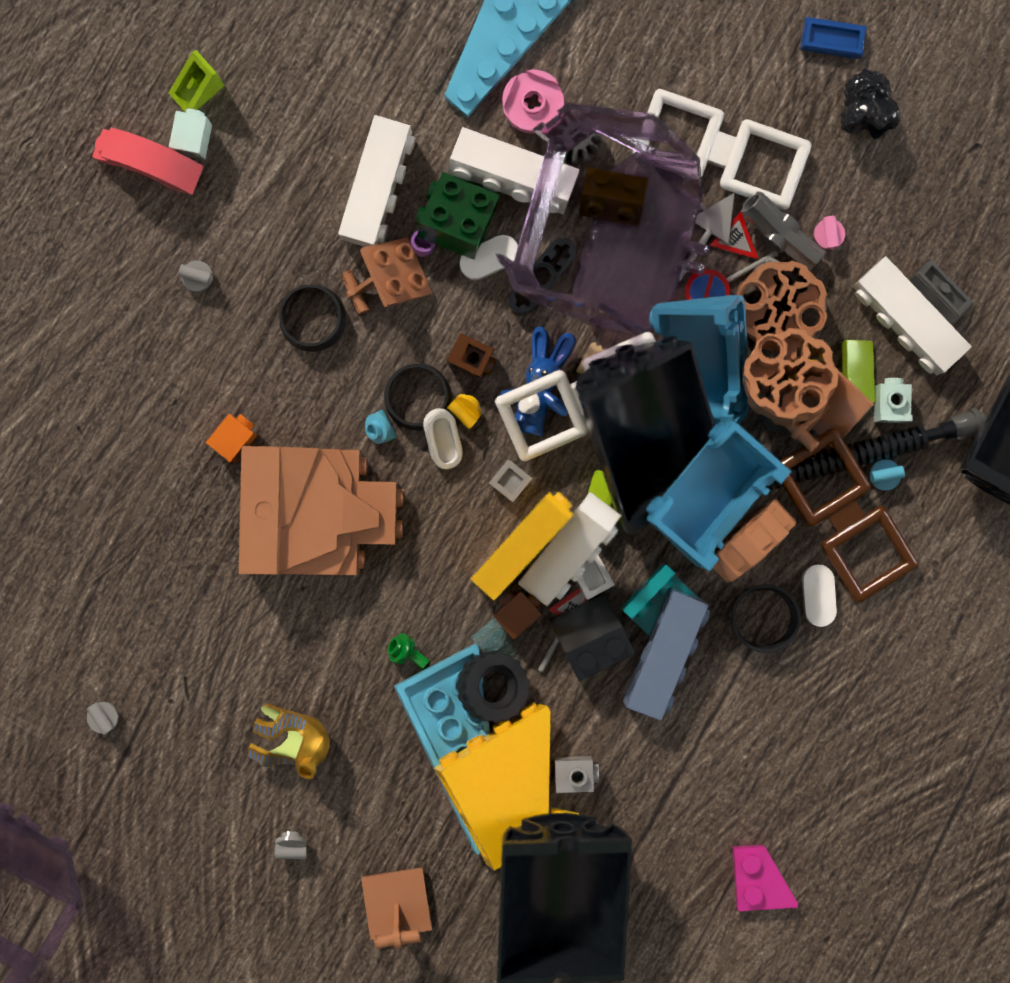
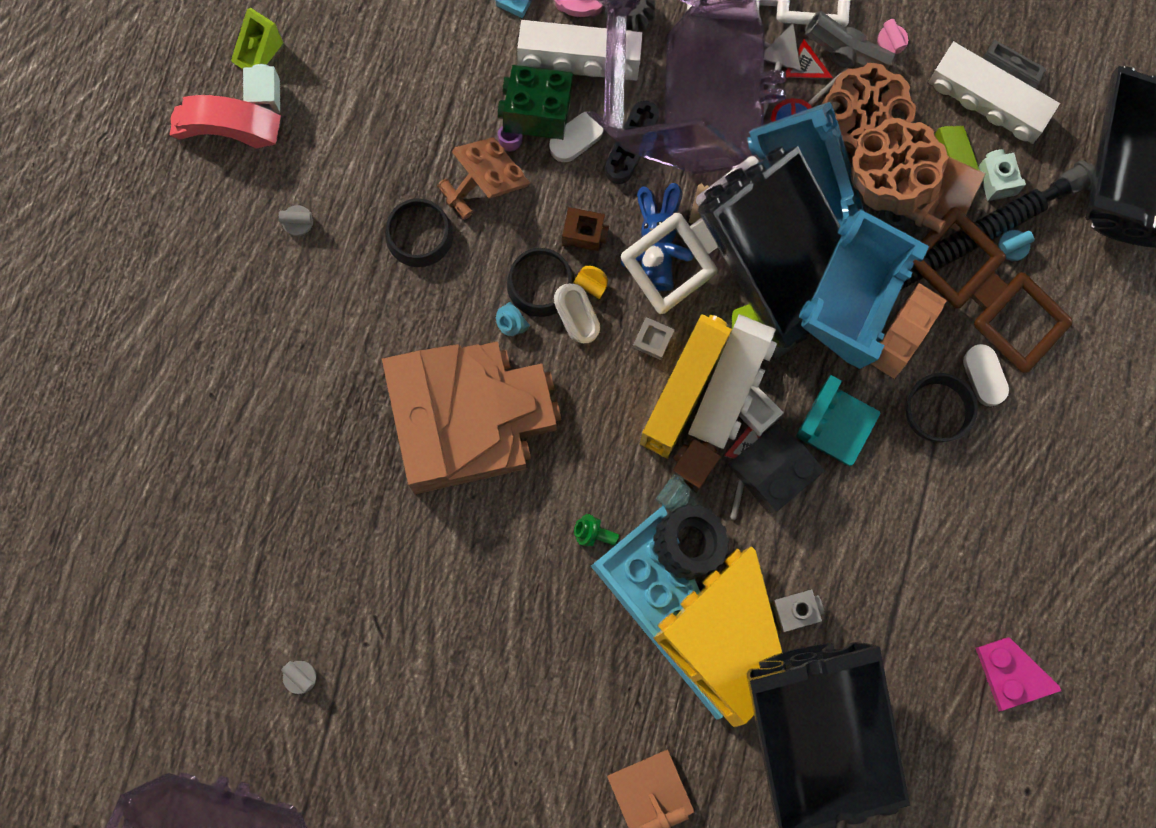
camera: 15 degrees left, 10 degrees down
(231, 436) = (366, 361): orange brick -> none
(290, 846) = (525, 761): light grey plate -> none
(305, 745) = (514, 643): pearl gold piece -> none
(376, 181) = (450, 90): white brick -> none
(613, 196) = (680, 51): dark brown bracket -> none
(666, 653) = (854, 465): sand blue brick -> none

